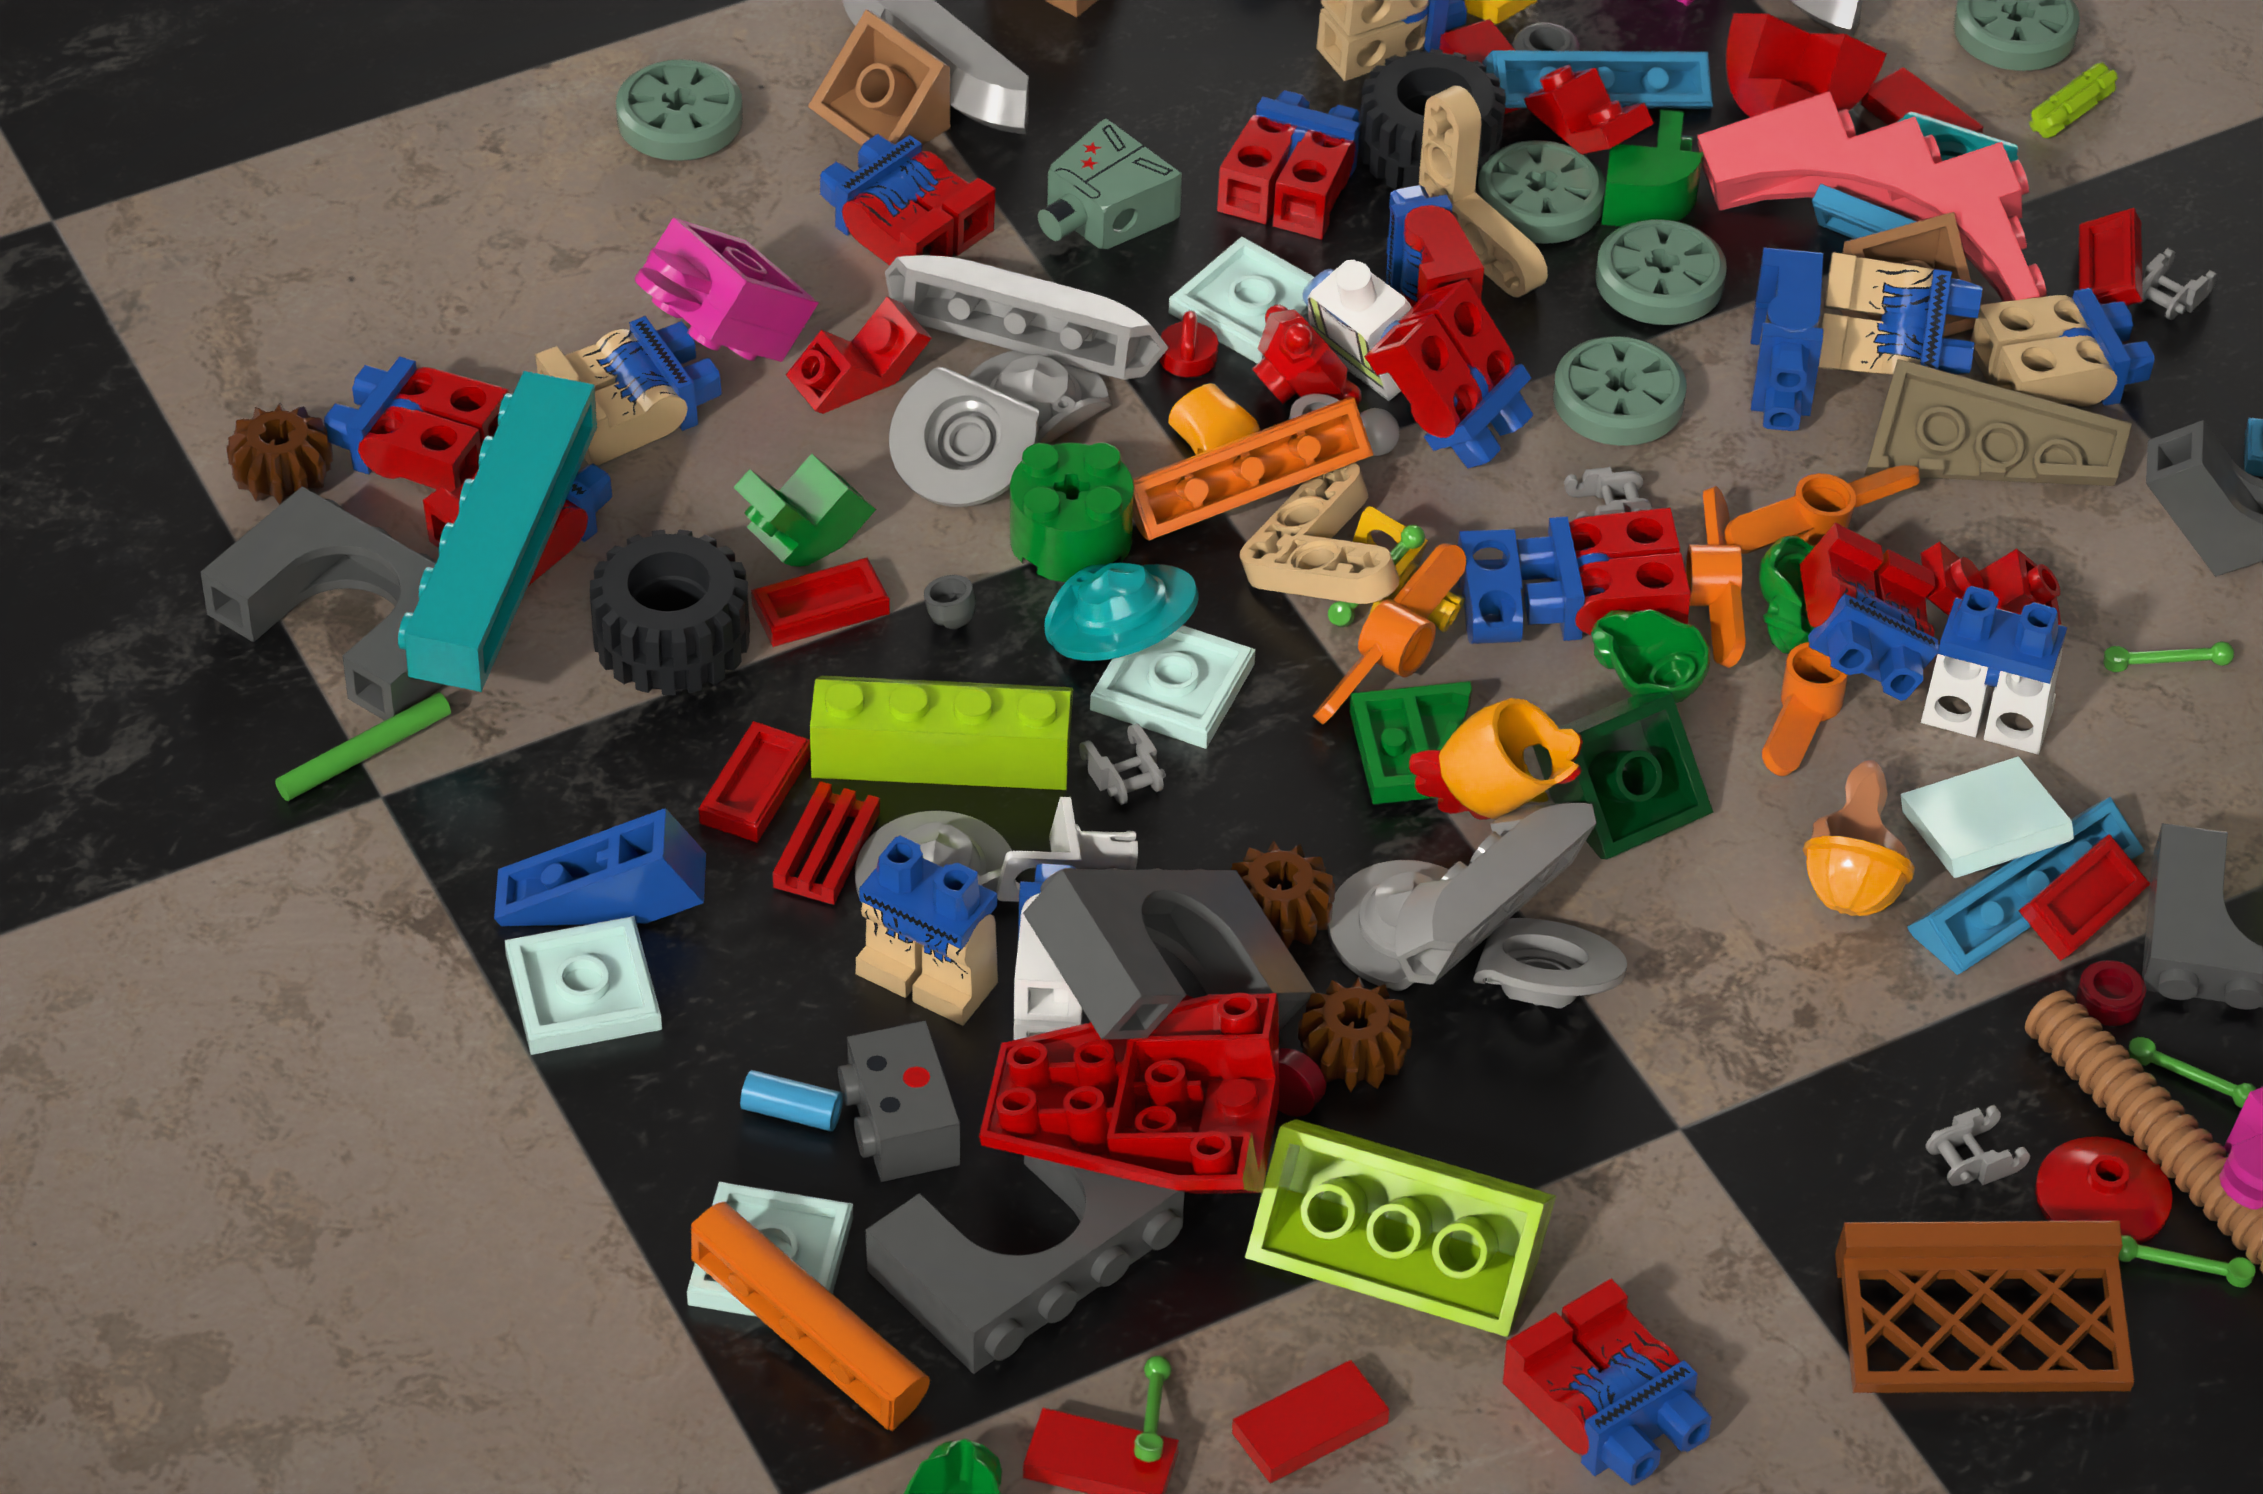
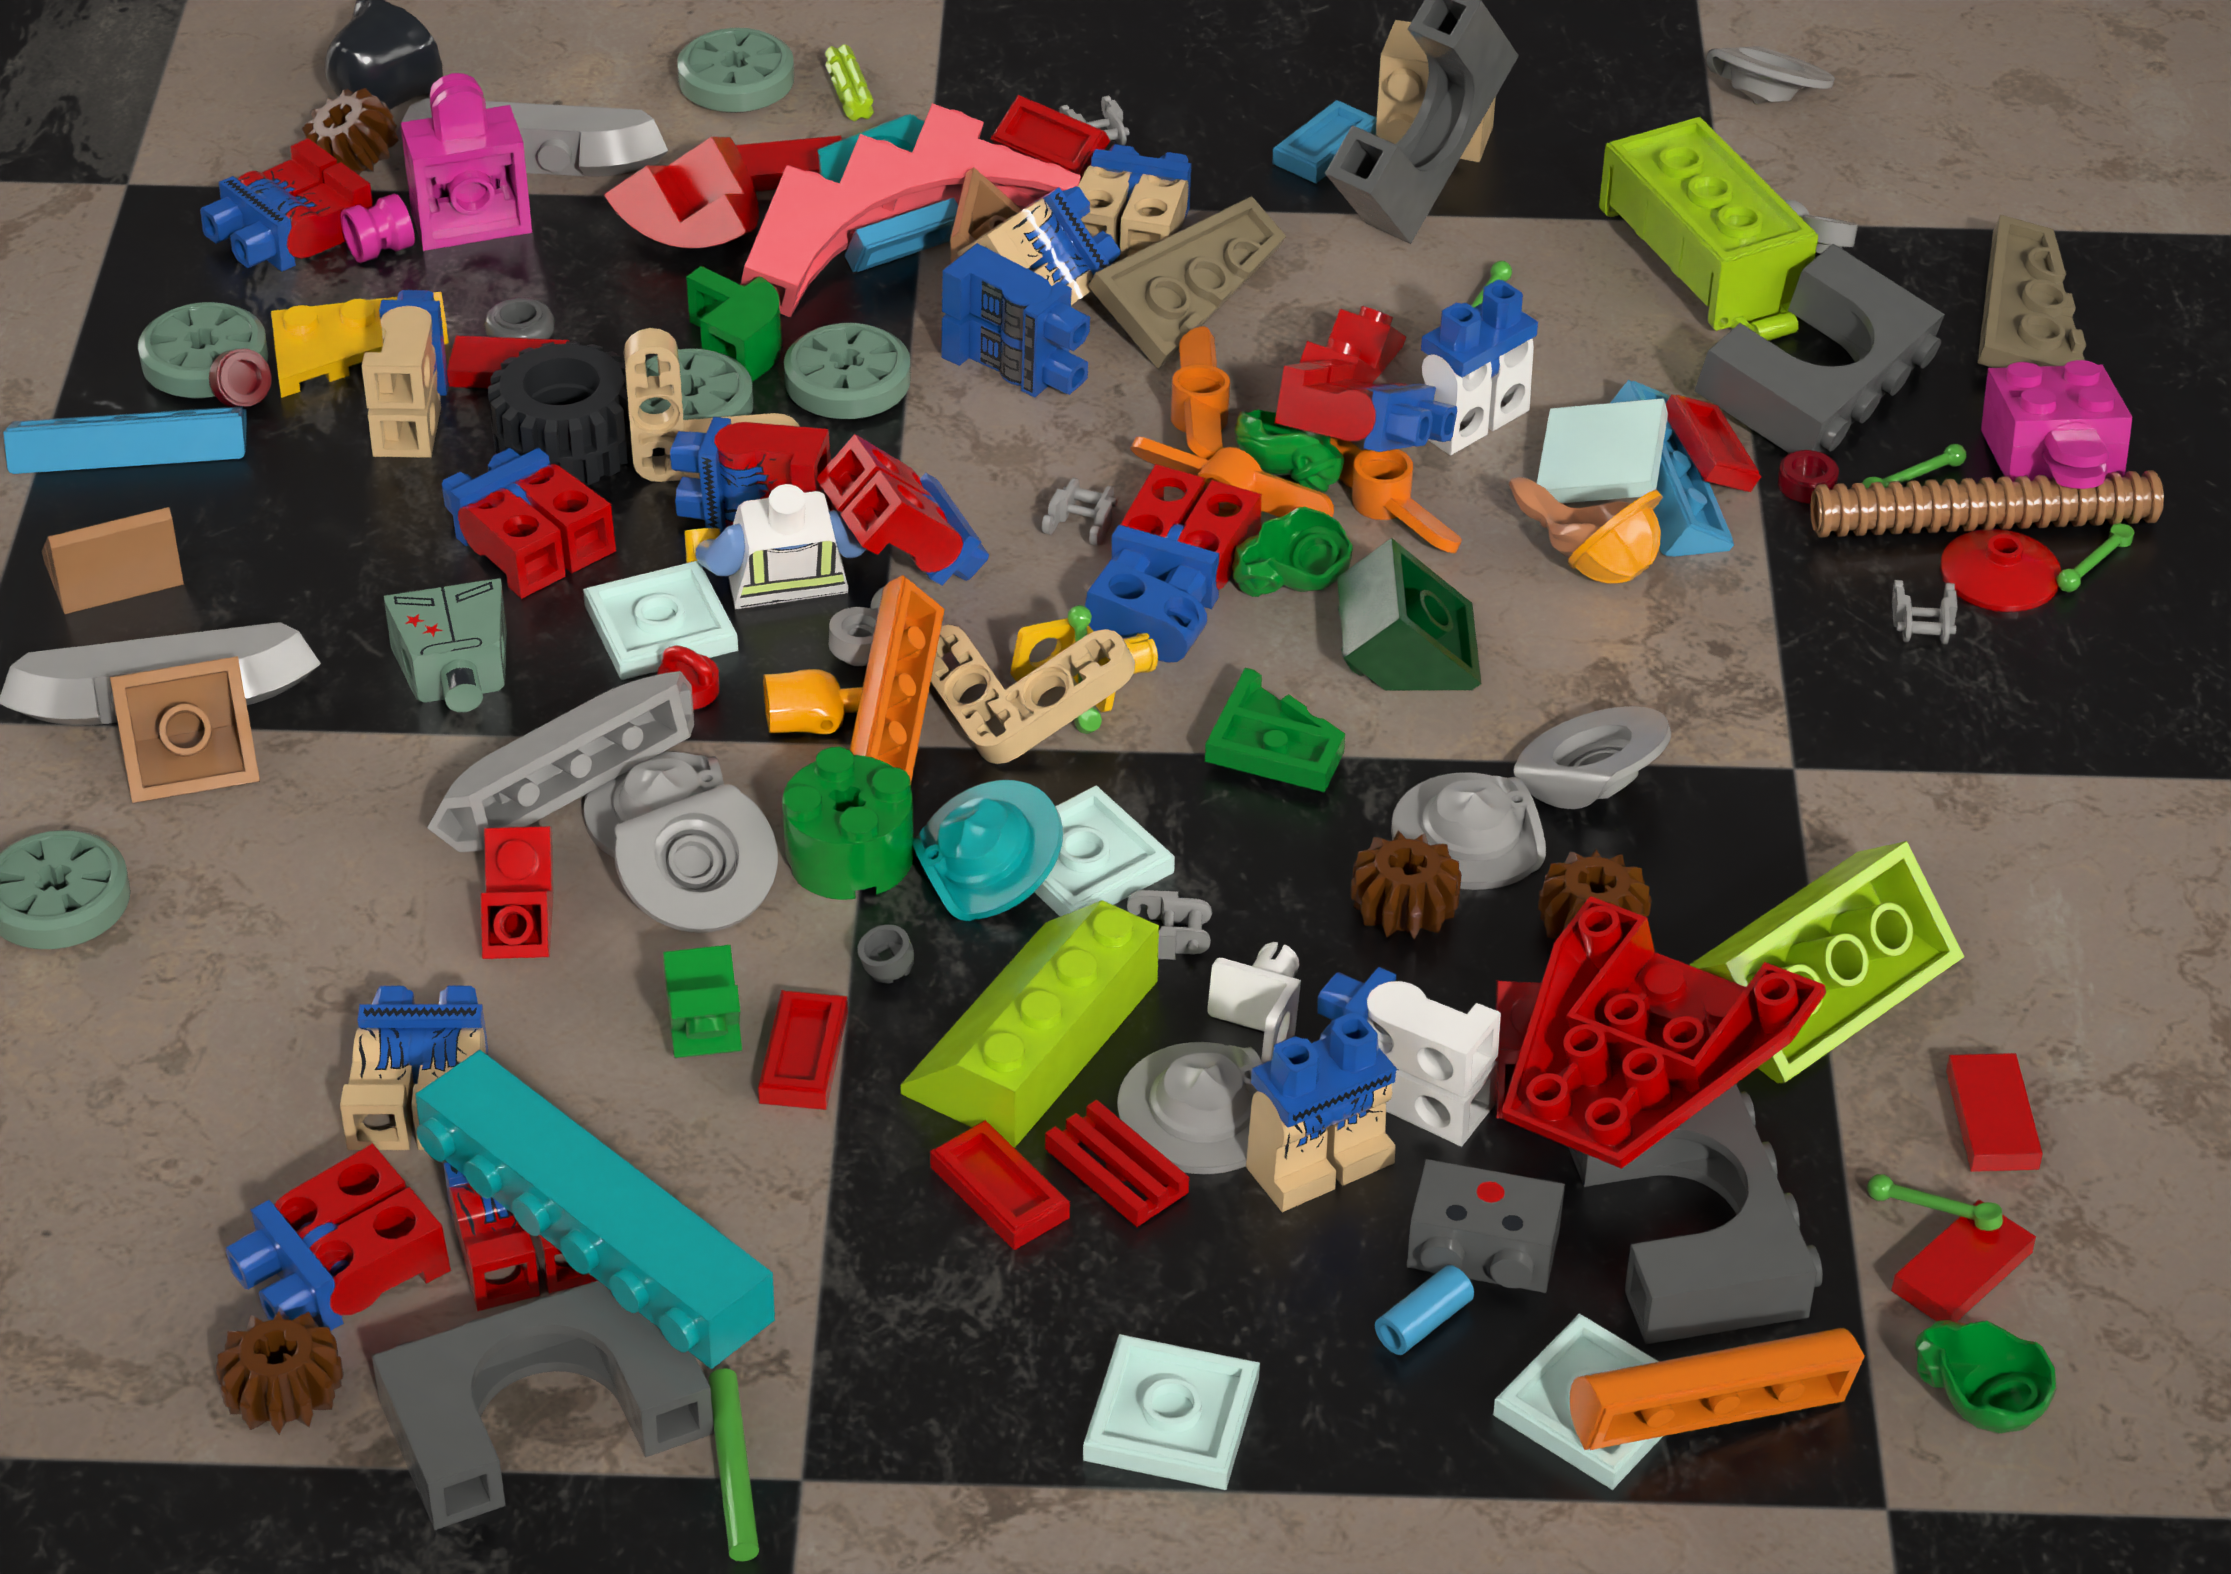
camera: 60 degrees left, 5 degrees down
(622, 872) = (1063, 1335): blue slope -> none
(670, 611) = (765, 1186): black tyre -> none
(725, 291) = (383, 933): dark pink brick -> none
(907, 201) = (347, 781): red hips -> none
(1103, 934) = (1490, 949): dark grey arch -> none
(1299, 359) = (779, 606): red rock -> none
(1398, 629) = (1167, 695): orange piece -> none
(1485, 765) = (1390, 671): light orange piece -> none
(1510, 867) = (1510, 739): light grey brick -> none
(1582, 111) = (683, 312): red slope -> none
(1606, 1385) = (2066, 911): hips -> none
(1619, 417) = (968, 448): sand green wheel -> none
(1631, 77) = (603, 296): dark azure slope -> none
(1993, 1253) = (2044, 663): dark orange fence -> none

